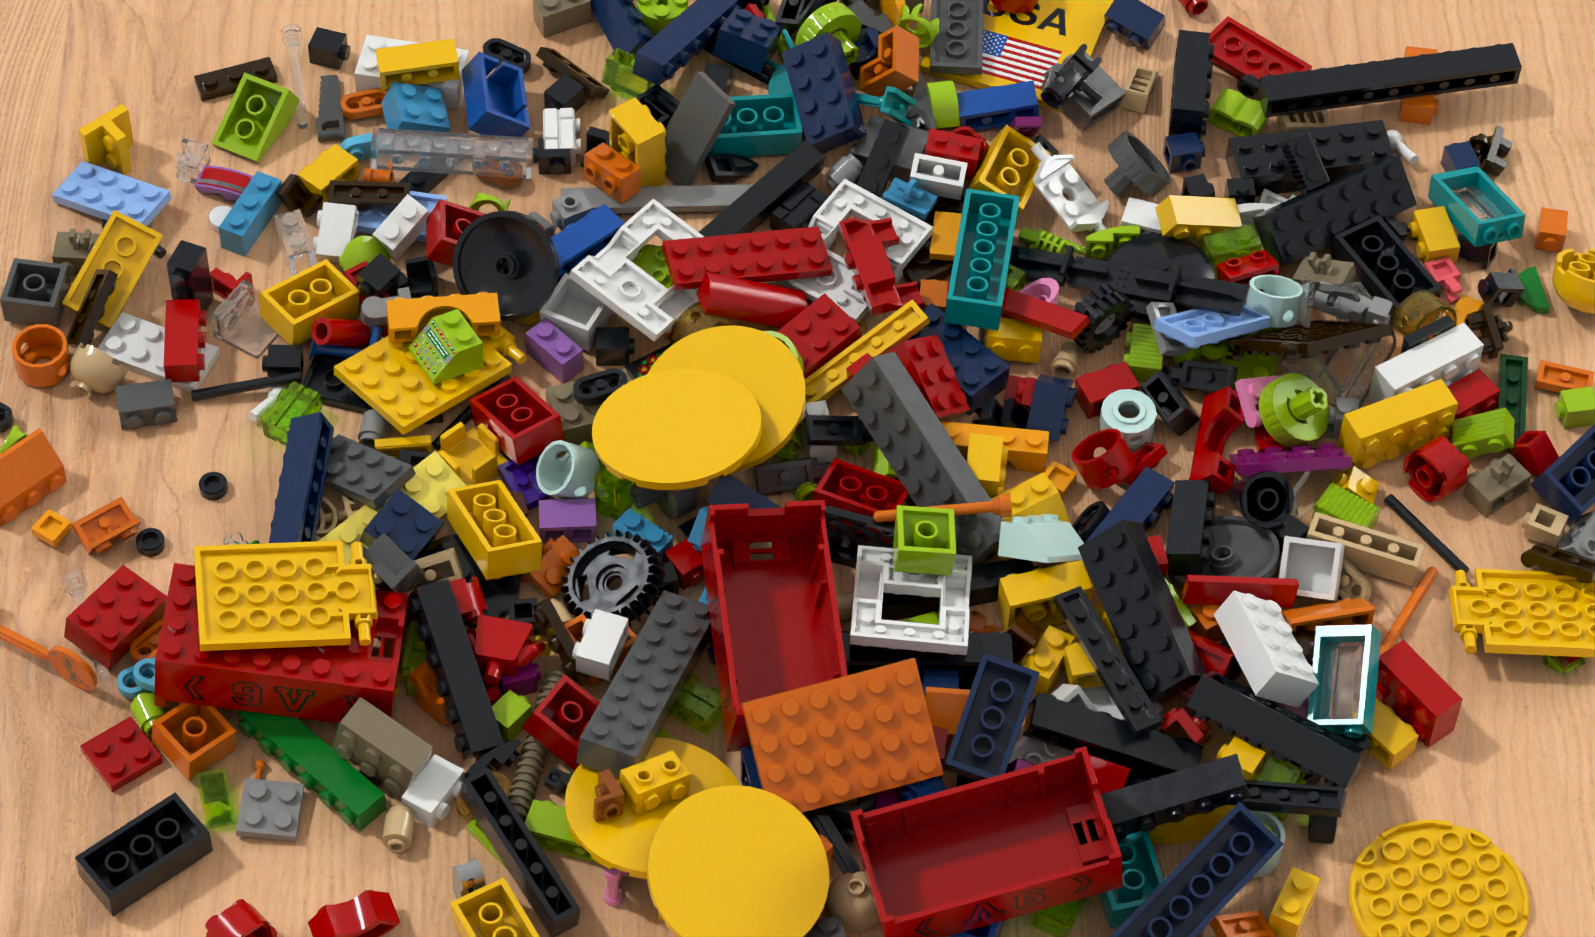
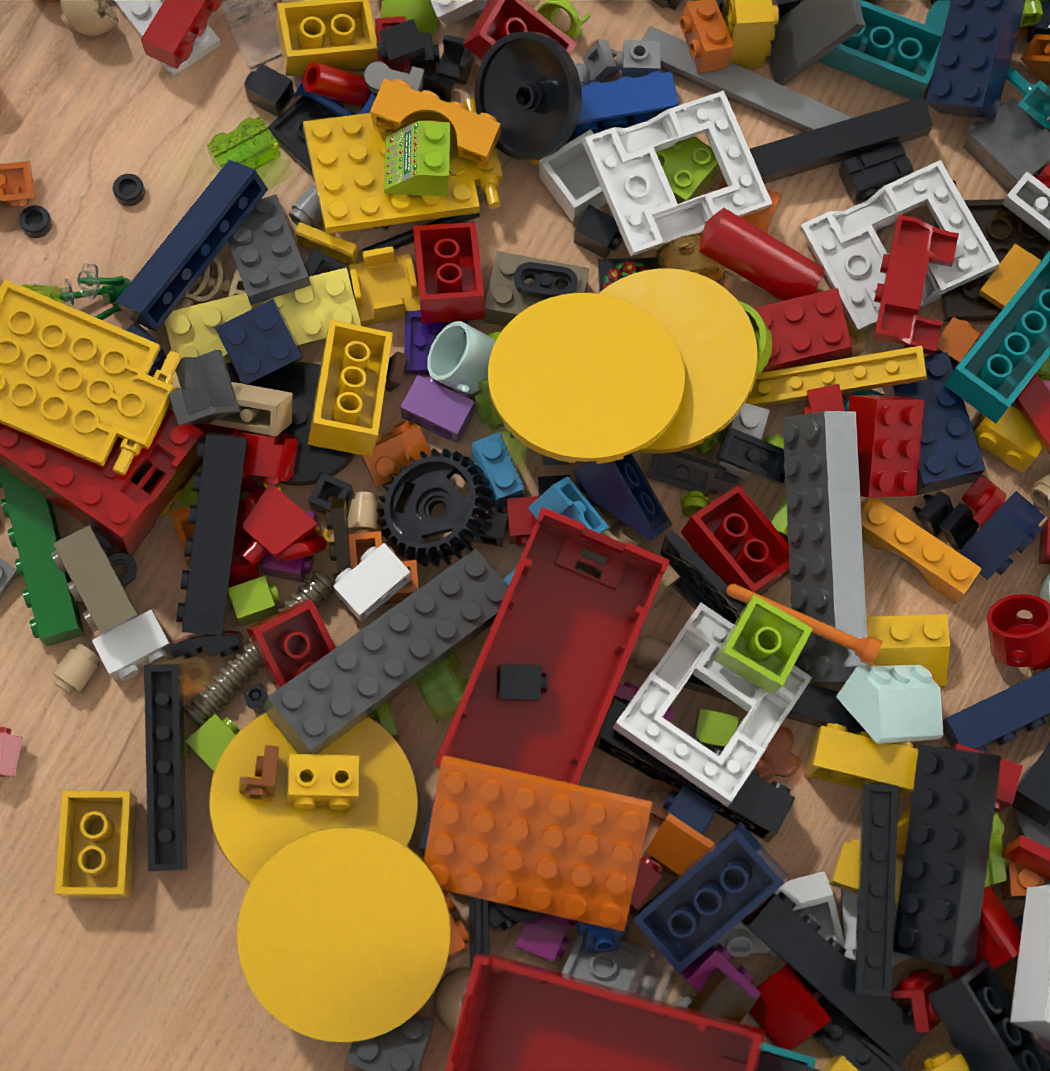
camera: 30 degrees right, 20 degrees up
(146, 404) = (114, 68): dark grey brick -> none
(244, 386) = (220, 96): black bar -> none
(269, 402) = (229, 125): white bar -> none
(467, 878) = (102, 772): light grey leg -> none
(554, 351) = (536, 208): medium lavender brick -> none
(728, 167) = (835, 83): black plate -> none
(748, 256) = (783, 205): red plate -> none
(758, 654) = (520, 682): none -> black brick
(845, 168) = (948, 148): light grey brick -> none
(883, 157) = (993, 156): black plate -> none
(910, 198) = (995, 217): dark azure hips -> none
(988, 461) = (891, 572): yellow brick -> none
(1024, 636) = (811, 796): reddish brown slope -> none
(1048, 658) = (824, 834): yellow brick -> none
(1061, 477) = (964, 622): light orange plate -> none
(1090, 519) = (966, 691): black plate -> none

